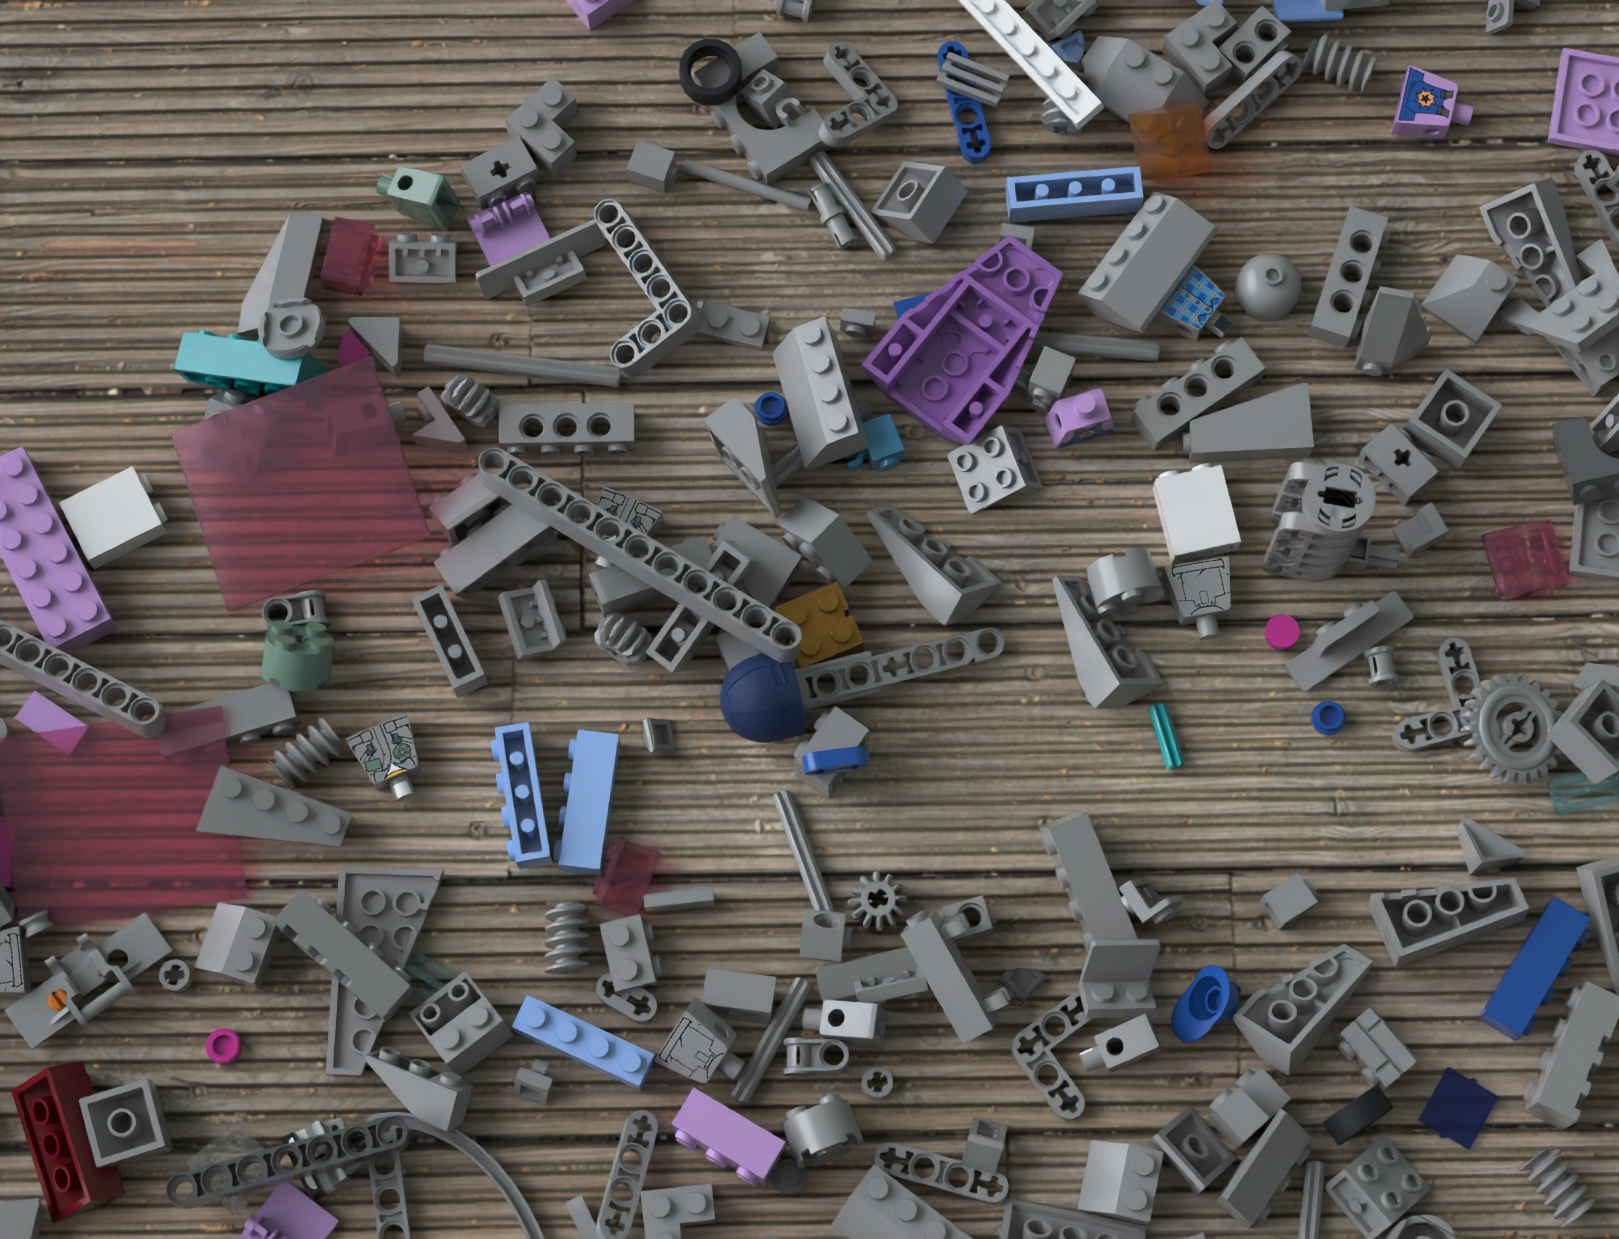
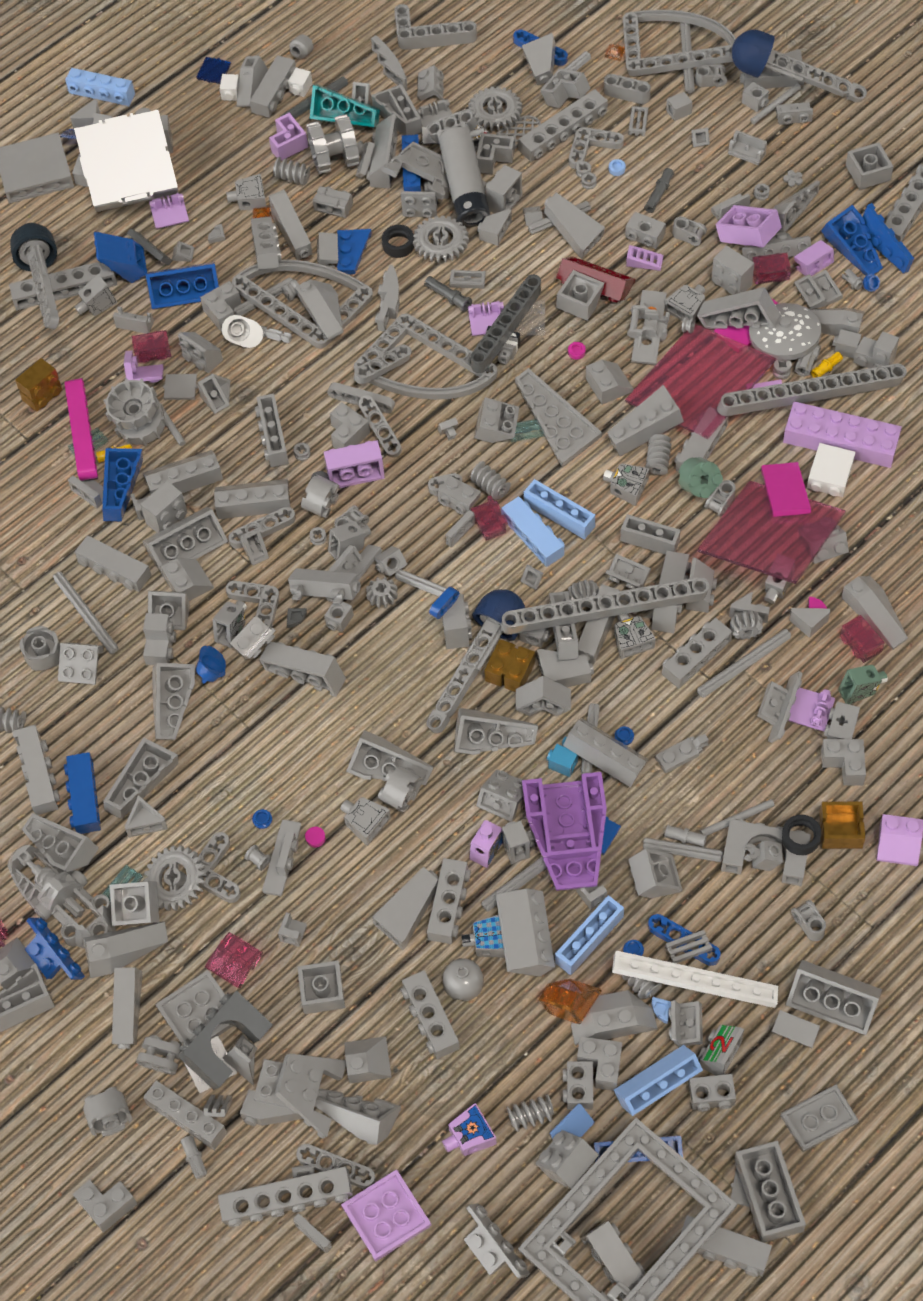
camera: 140 degrees right, 15 degrees down
(182, 984) = (620, 360): light grey bush -> none
(205, 540) = (785, 489): none -> dark pink tile
(240, 362) = (844, 563): wedge -> none
(292, 328) = (843, 576): light grey tile -> none
(344, 955) = (563, 399): light grey wedge -> none
(423, 259) = (832, 665): light grey bracket -> none
(426, 1092) = (476, 390): light grey slope -> none
(583, 1043) = (443, 453): light blue brick -> none
(646, 56) = (842, 825): none -> pearl gold piece
(652, 167) = (783, 785): light grey brick -> none
(652, 282) = (729, 735): light grey beam -> none
(700, 1045) = (397, 485): light grey torso -> none
(739, 995) = (401, 516): light grey hinge -> none
(743, 449) = (608, 695): light grey slope -> none
(771, 1041) = (374, 516): light grey axle -> none
(845, 65) = (723, 892): light grey beam -> none
(857, 323) = (625, 799): light grey plate -> none
(1034, 143) = (633, 946): none -> blue plate
(1143, 900) = (269, 676): light grey bracket -> none
(1166, 736) = (325, 753): teal axle -> none
(1196, 513) = (398, 849): white brick -> none
(1264, 1170) = (131, 624): light grey slope -> none
(1283, 67) = (555, 1056): light grey beam -> none
(1289, 900) = (212, 731): light grey brick -> none
(1322, 523) = (334, 867): light grey piece -> none
(1358, 1115) = (109, 673): black tyre -> none
(1375, 1049) = (124, 707): light grey brick -> none
(1391, 332) = (383, 995): light grey wedge -> none
(1403, 480) = (320, 943): light grey brick -> none
(1458, 1108) = (72, 719): clear blue piece -> none

